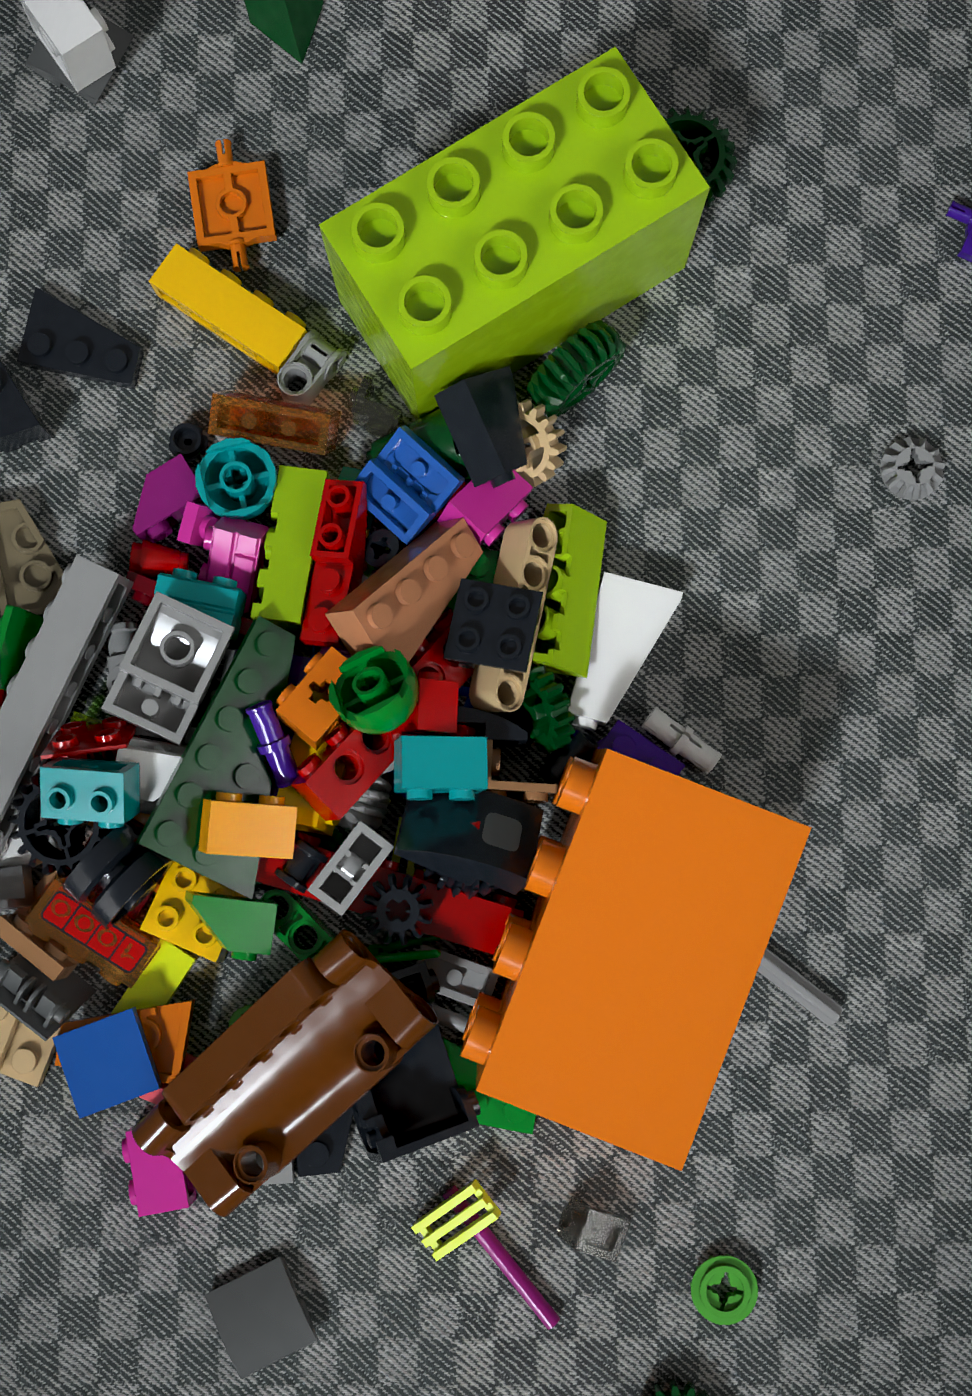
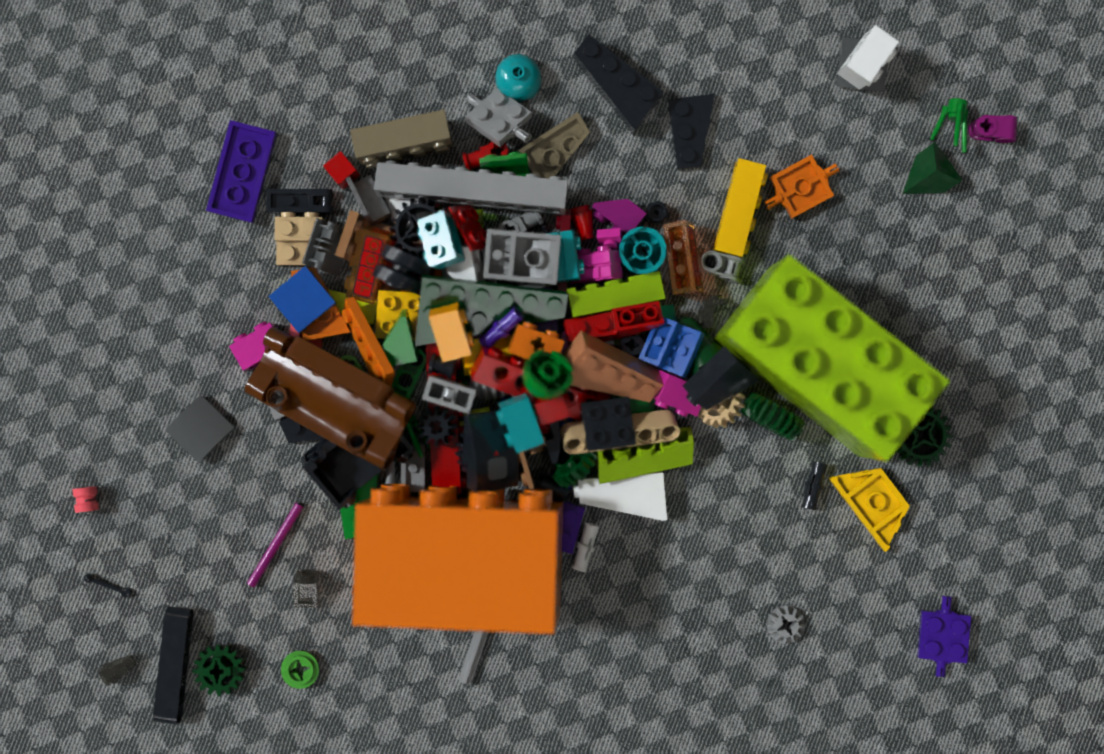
camera: 75 degrees right, 5 degrees up
(216, 978) = (369, 347): none -> orange wing
(432, 1238) = (271, 504): neon yellow tile -> none
(707, 348) = (814, 485): none -> black pin
(765, 266) = (874, 502): none -> yellow wing

